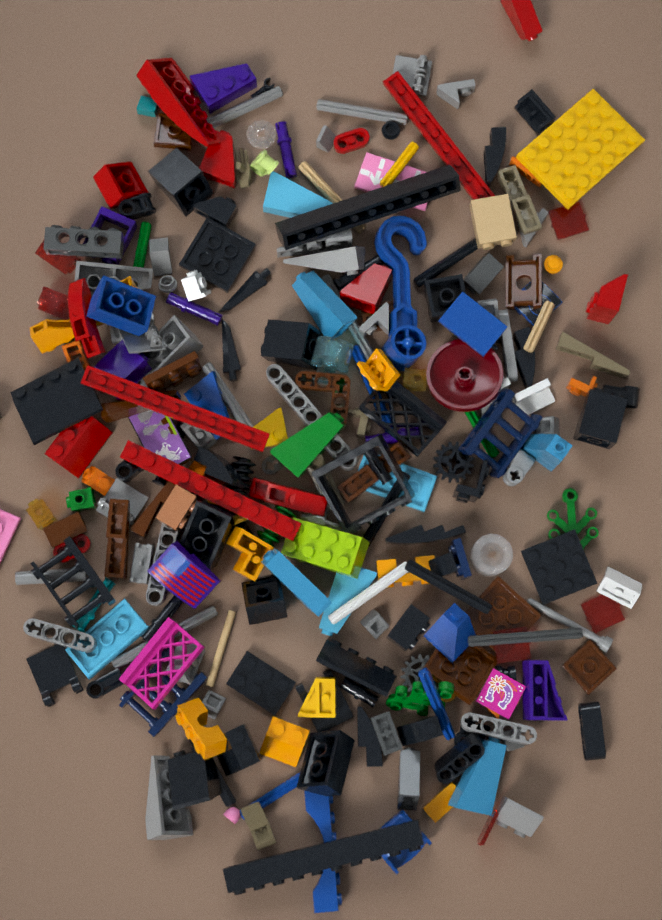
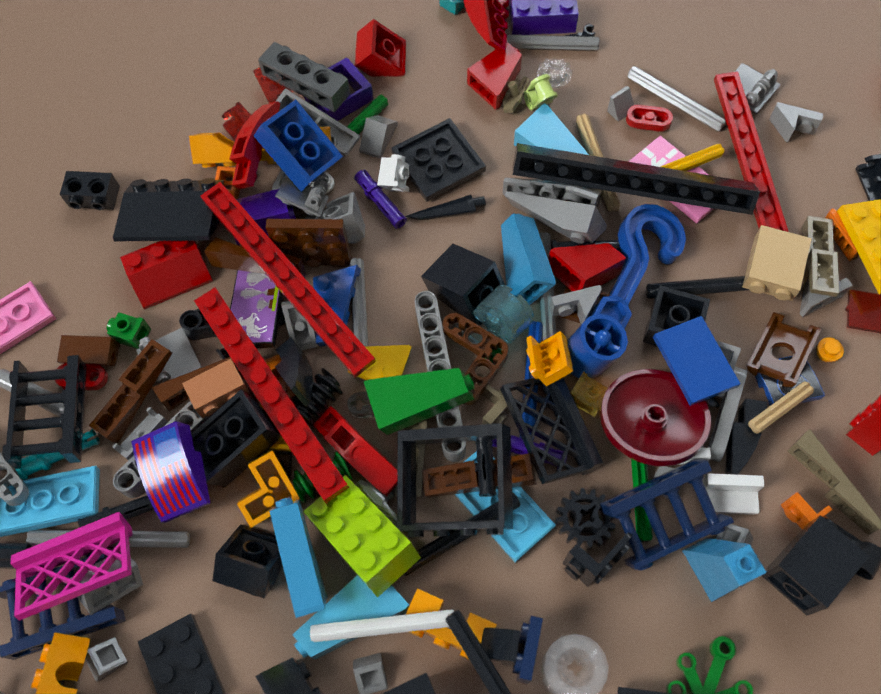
camera: 35 degrees right, 15 degrees down
(47, 516) = (76, 320): clear yellow brick -> none
(97, 480) = (159, 319): orange bracket -> none
(138, 206) = (383, 79): black piece -> none
(167, 284) = (367, 161): light grey plate -> none
(170, 135) = (460, 31): reddish brown plate -> none
(181, 181) = (444, 76): black slope -> none
(217, 209) = (465, 115): black slope -> none
(221, 648) = (162, 593): tan bar -> none
(230, 357) = (388, 266): black bar -> none
(286, 151) = (574, 89): dark purple pin -> none
(390, 130) = (699, 127): black plate -> none
(418, 536) = (488, 587): black slope -> none
(482, 274) = (734, 316): dark grey hinge -> none
(494, 153) = (811, 198): black slope -> none
(519, 466) = (671, 570): light grey piece -> none

